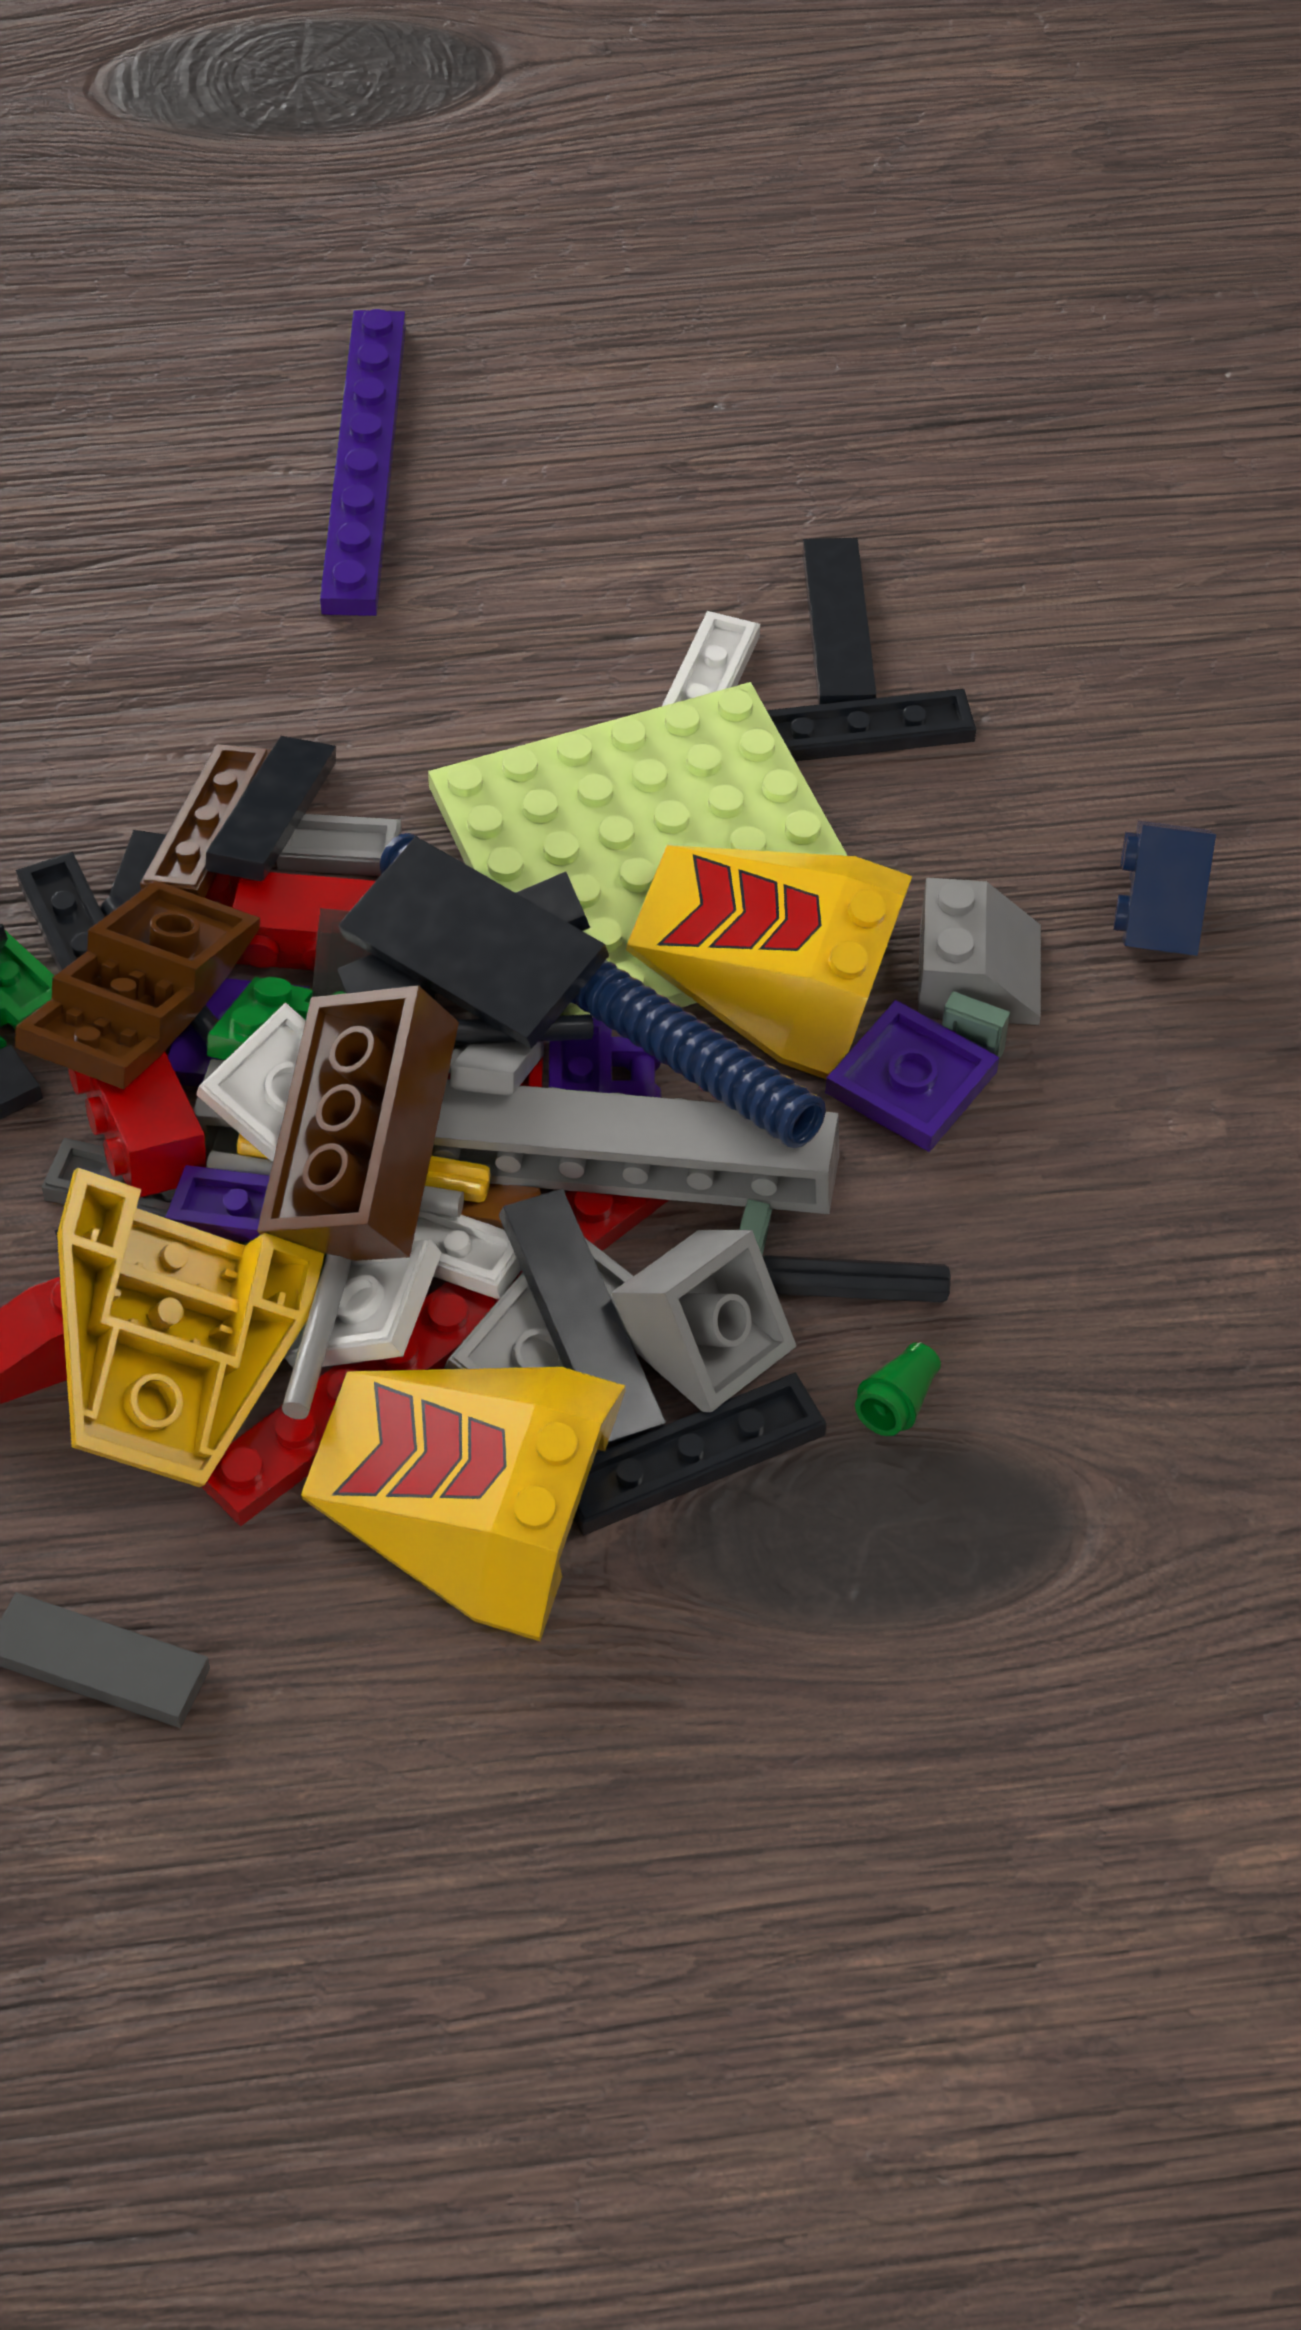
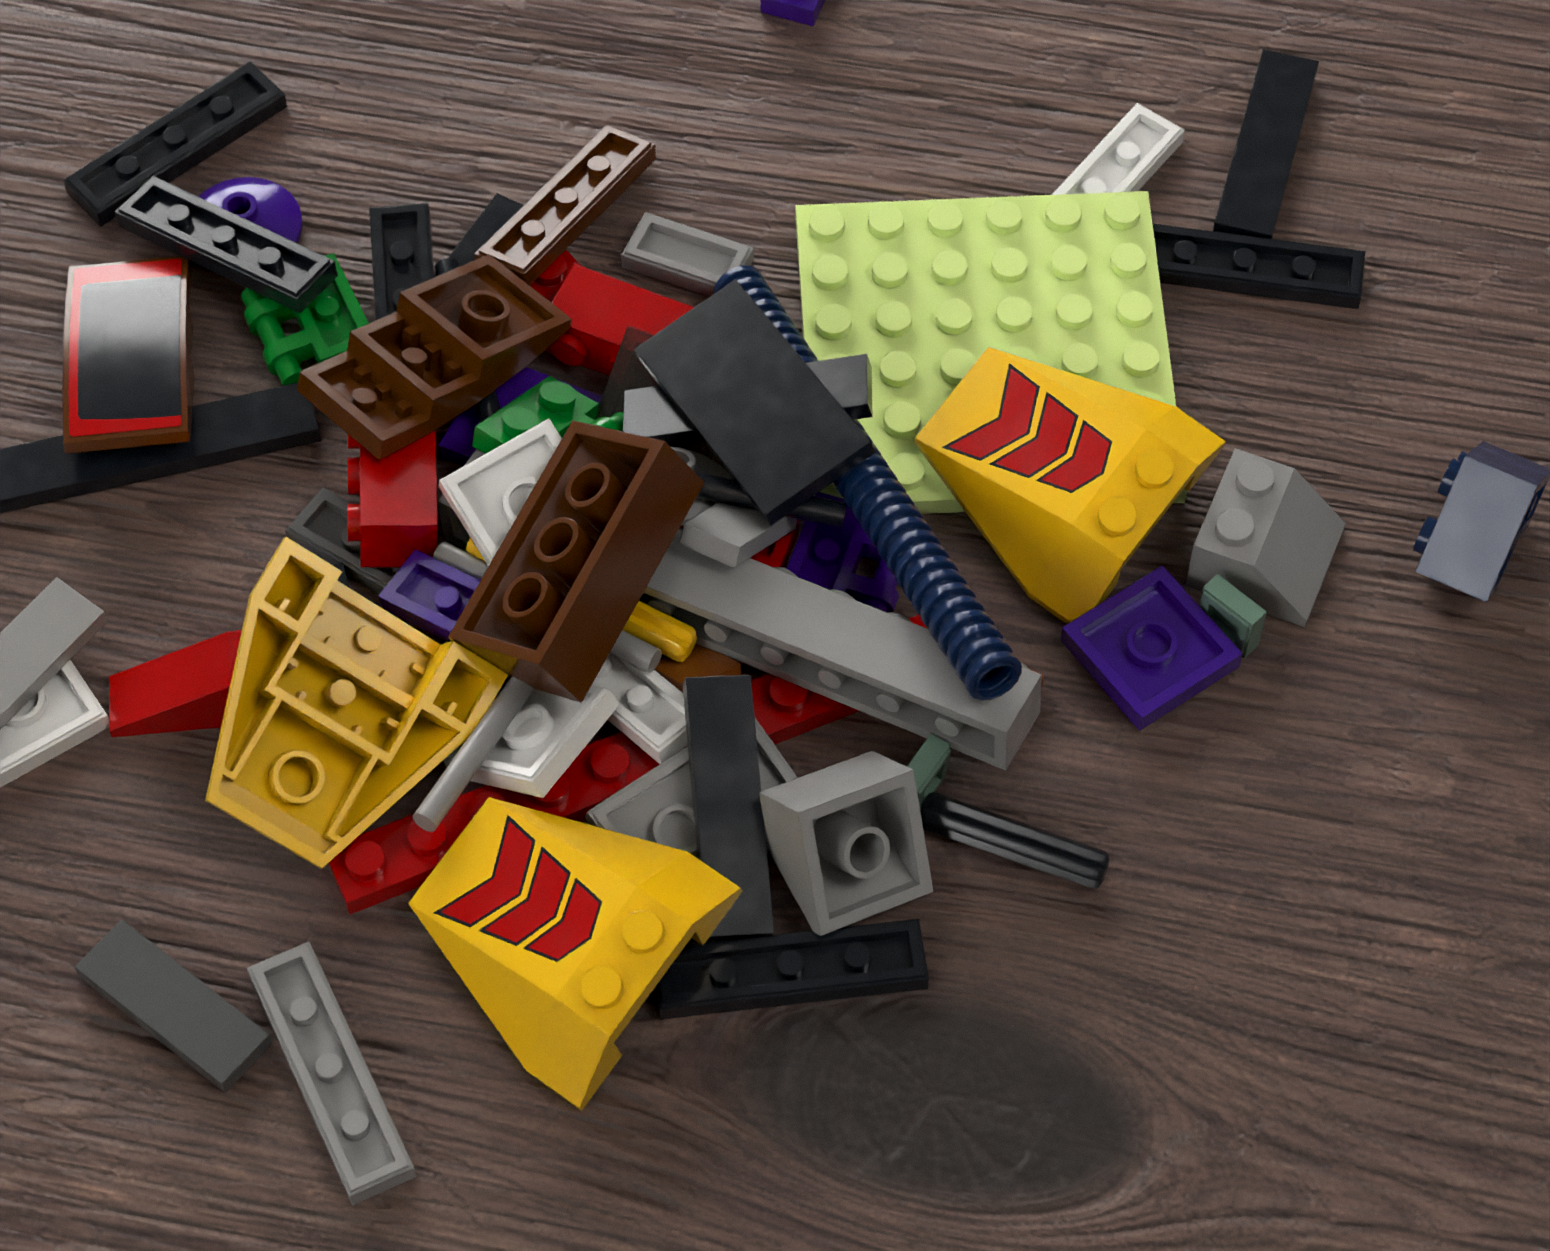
camera: 20 degrees right, 5 degrees up
(270, 808) = (629, 206): black tile -> none
(282, 1677) = (331, 1073): none -> light grey tile
(894, 1394) = (1008, 967): green cone -> none

